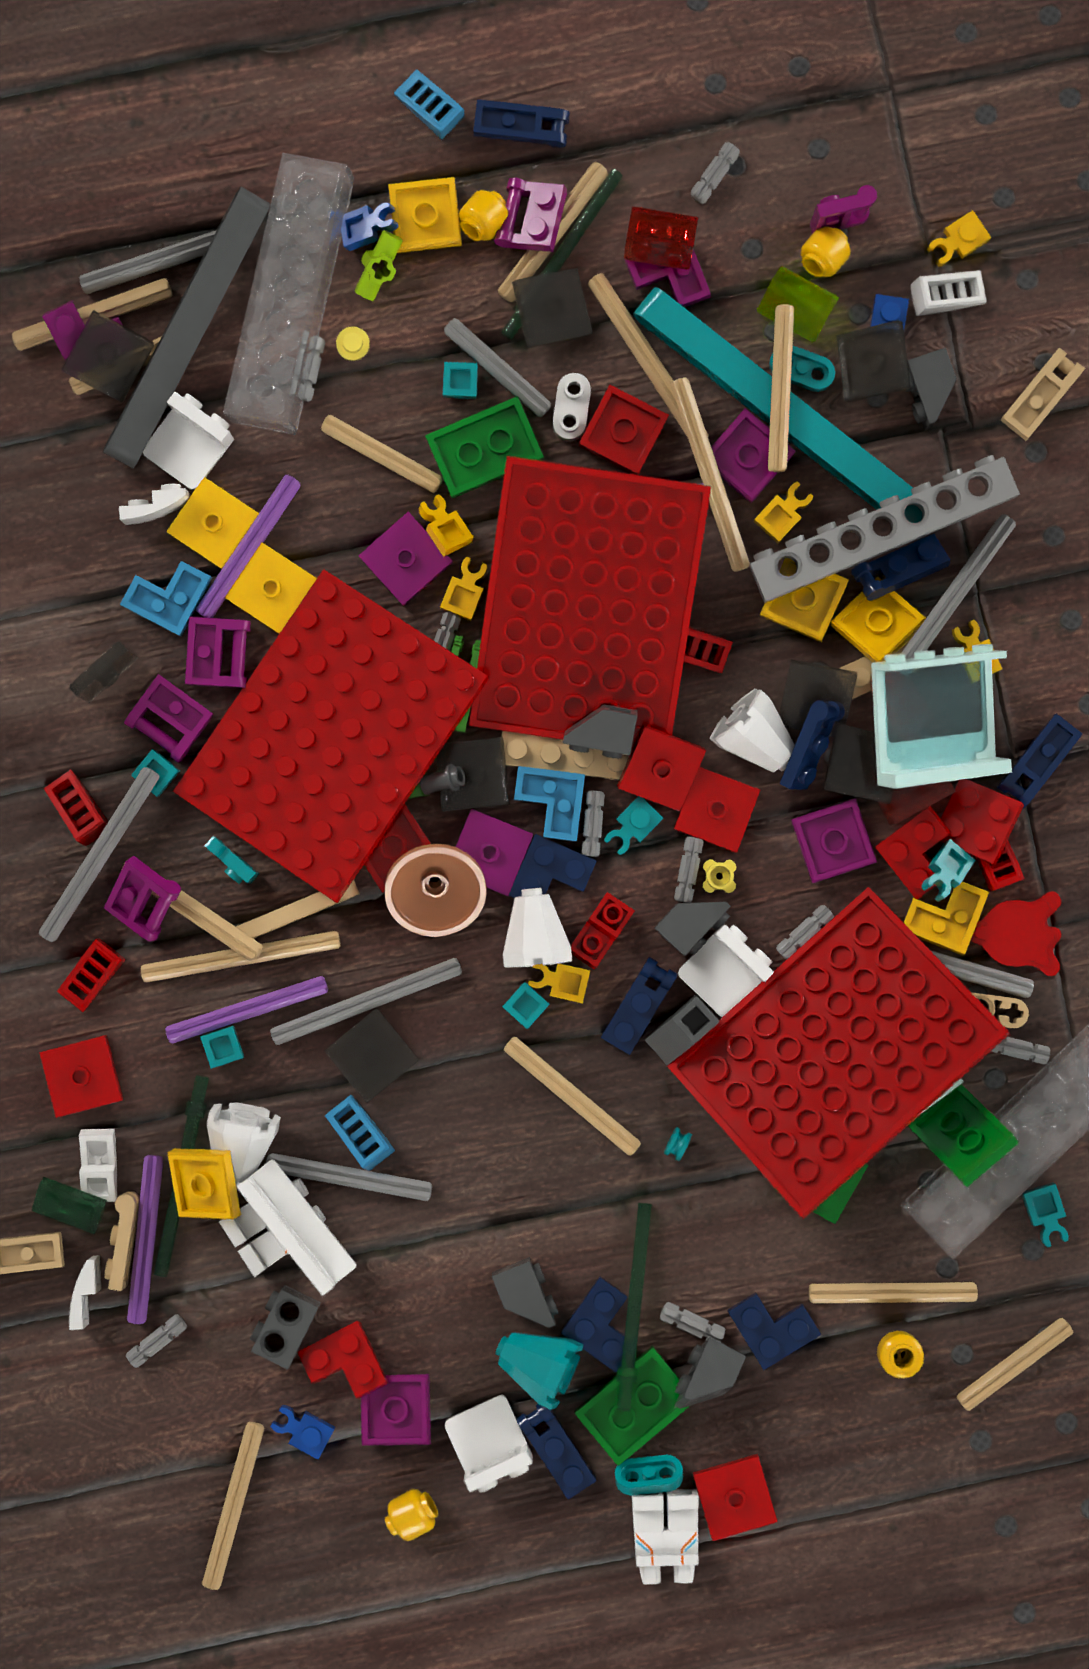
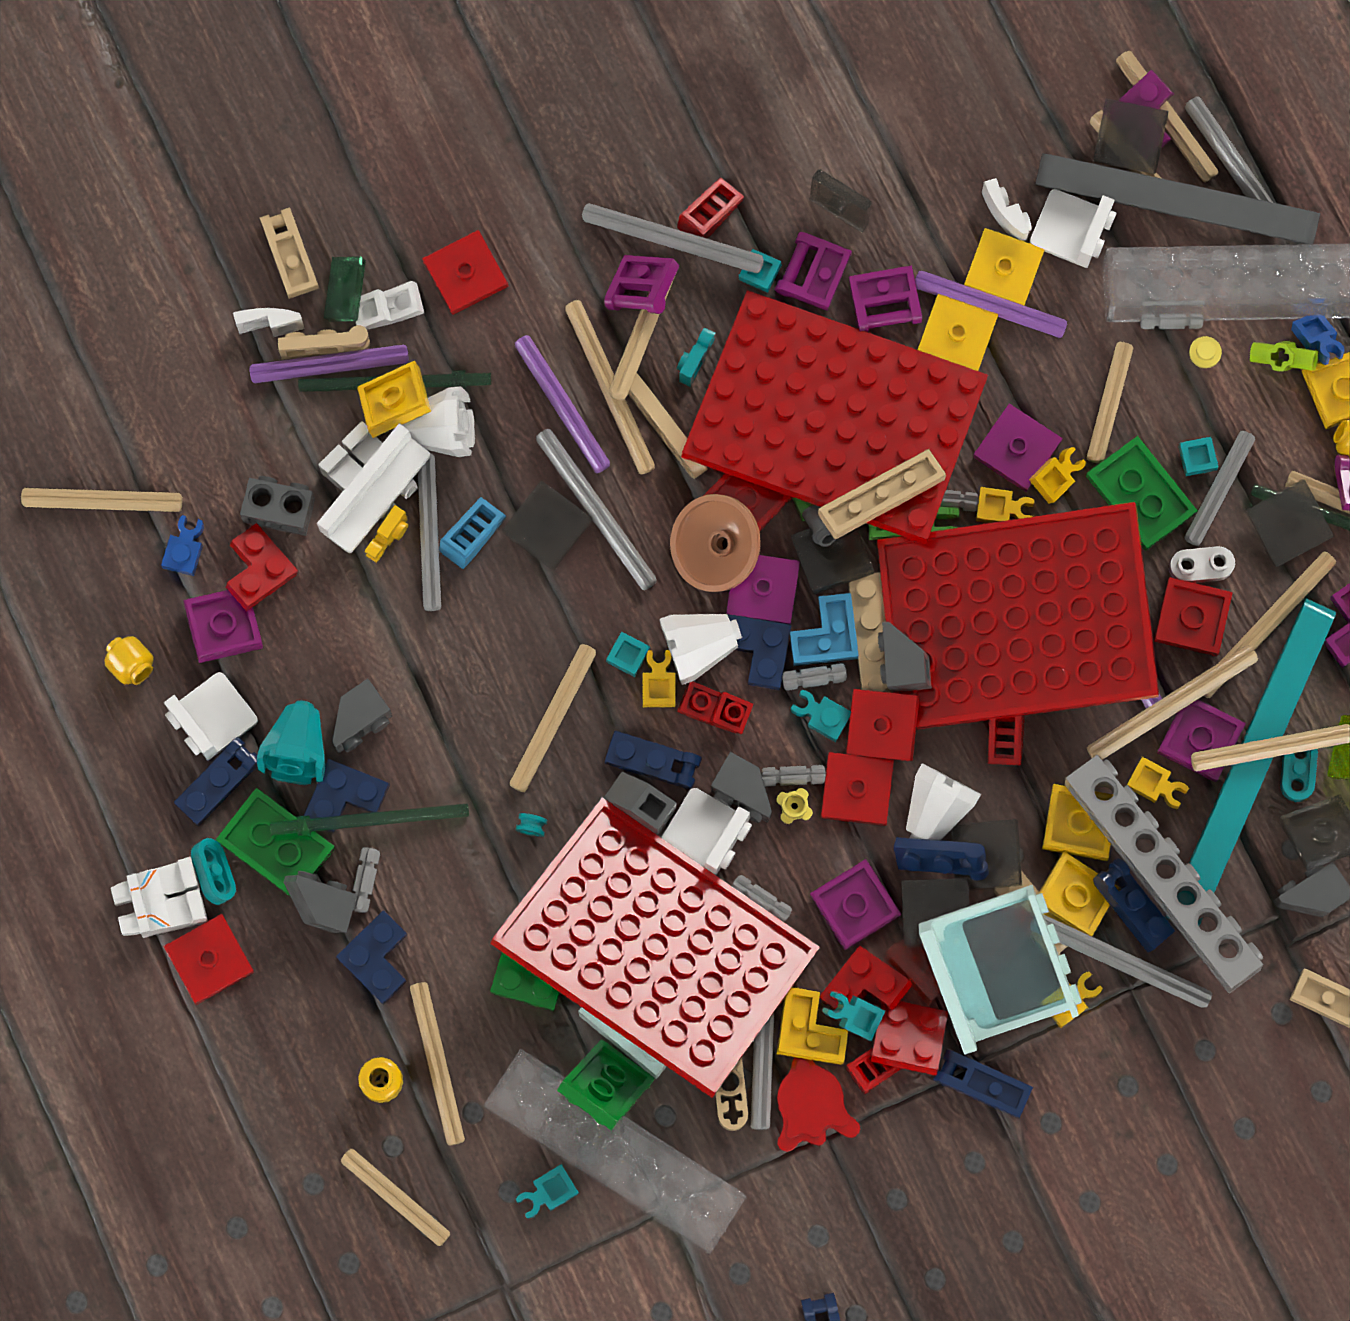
camera: 75 degrees right, 10 degrees down
(110, 955) = (577, 277): red slope -> none
(156, 1341) = (238, 395): light grey axle -> none
(171, 606) = (918, 249): dark azure plate -> none
(222, 1047) = (522, 389): teal plate -> none
(337, 1214) = (392, 528): none -> yellow plate
(432, 710) = (881, 494): none -> tan plate
(1023, 1050) = (700, 1127): light grey axle -> none

